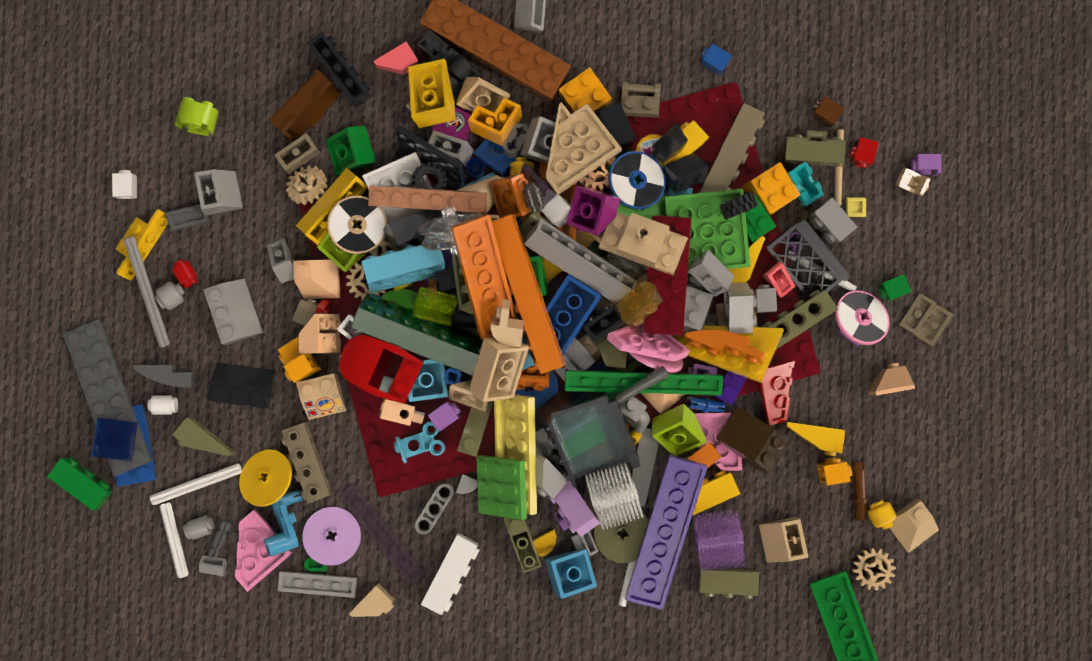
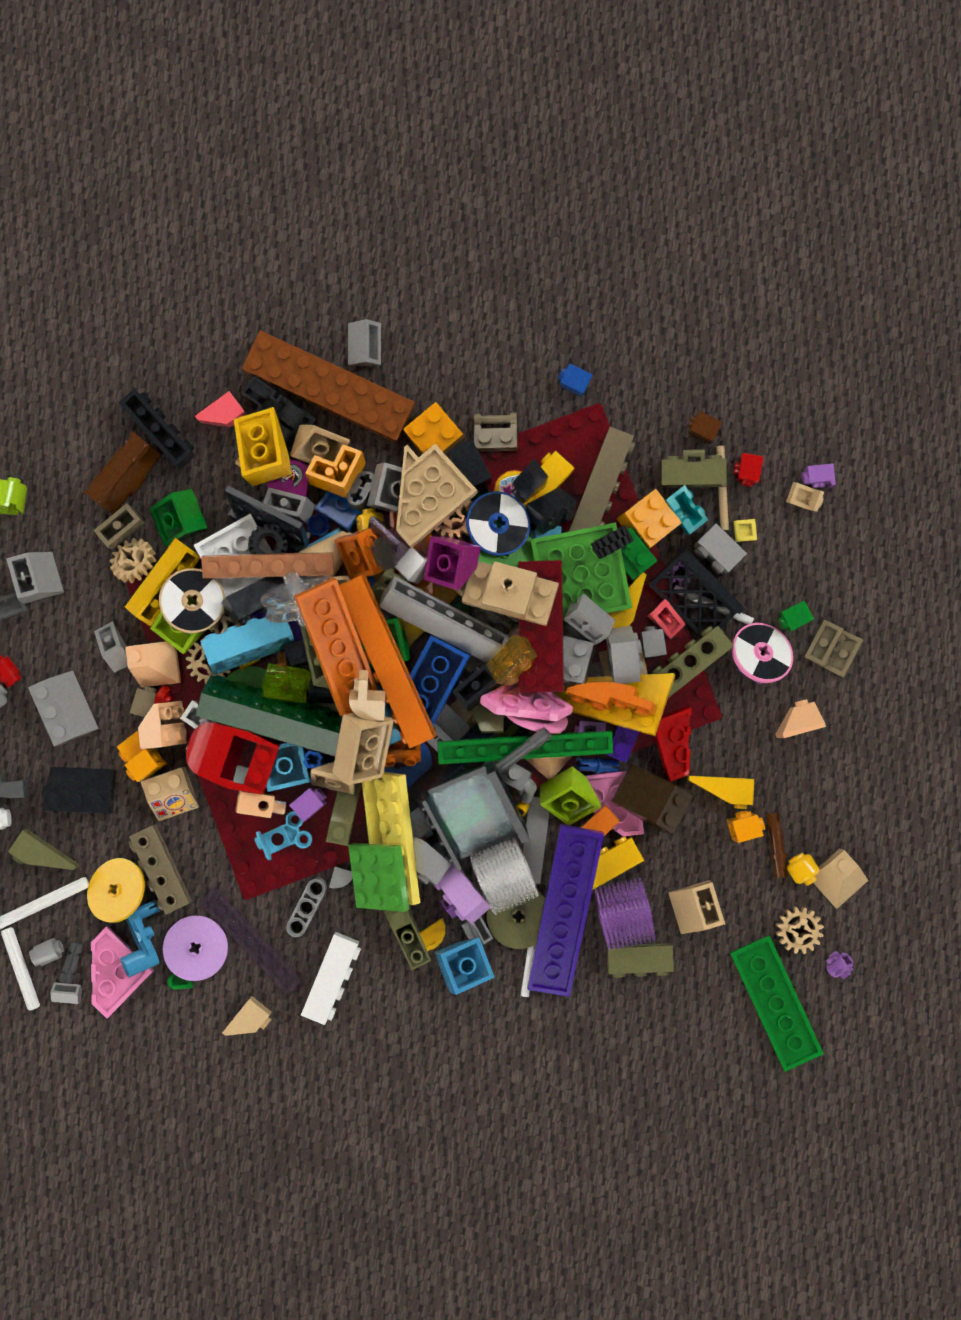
camera: 10 degrees left, 0 degrees up
(317, 584) = (184, 1003): light grey plate -> none
(907, 603) = (839, 965): none -> medium lavender gear

